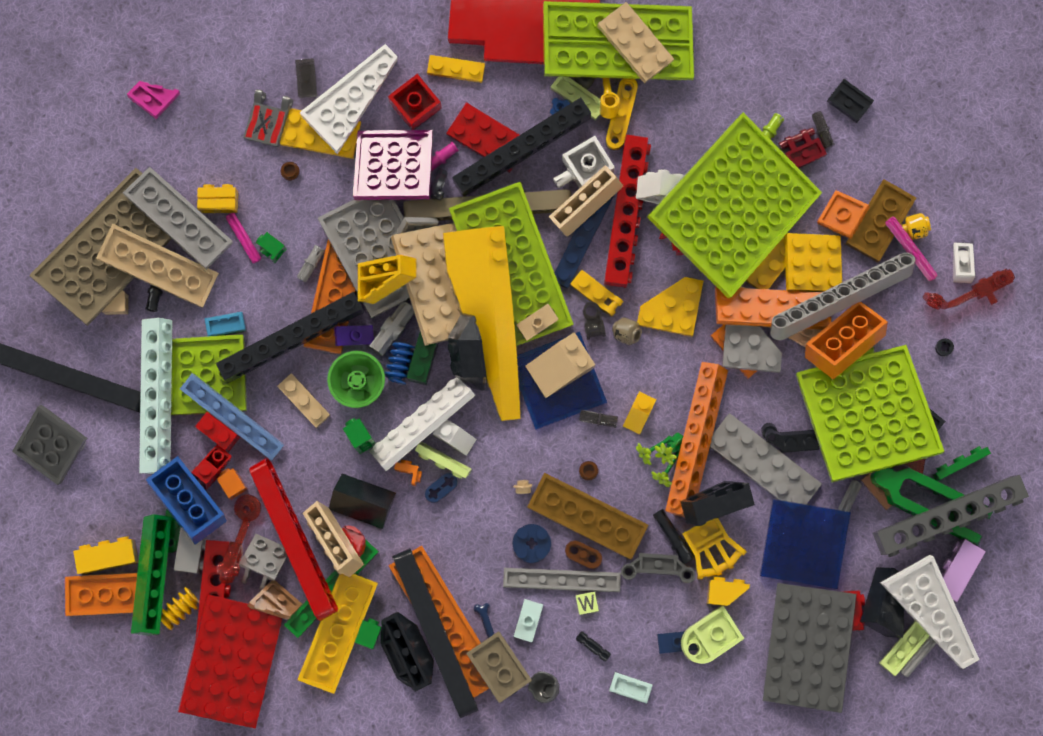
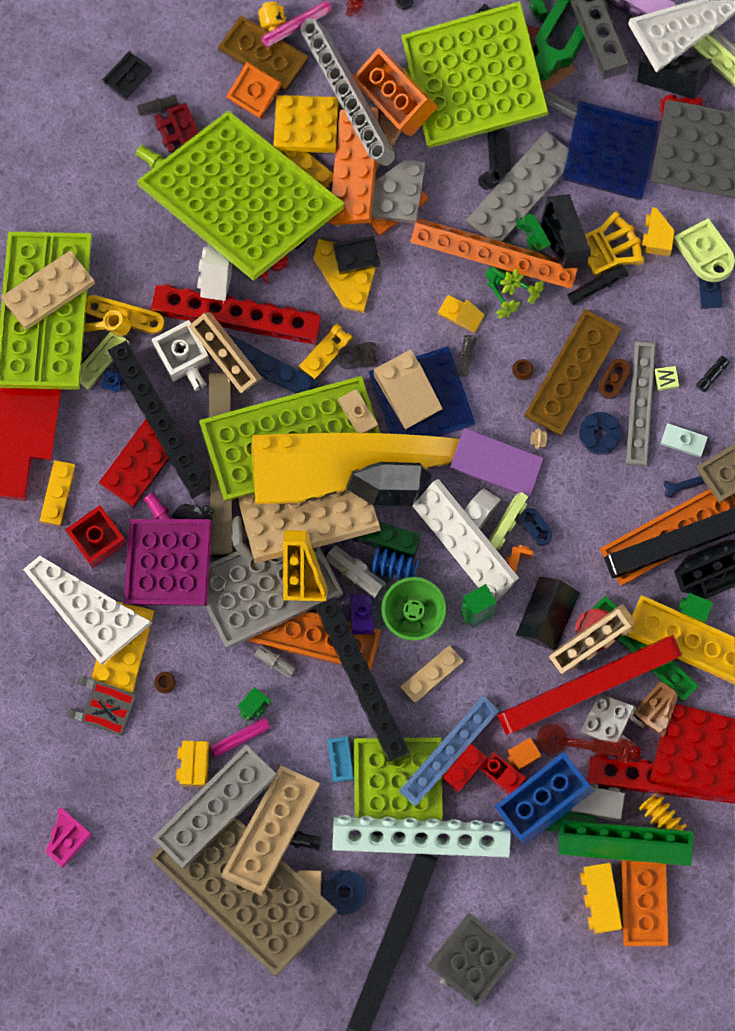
camera: 85 degrees left, 5 degrees down
(99, 333) = (356, 895): none -> dark blue plate
(306, 78) = (56, 660): clear smoke plate -> none
(497, 449) = (496, 463): none -> medium lavender tile
(626, 331) = (371, 320): dark tan head -> none
(658, 565) = (627, 301): dark grey plate -> none
(687, 314) = (356, 255): none -> black plate
(712, 475) = (535, 235): none -> green plate

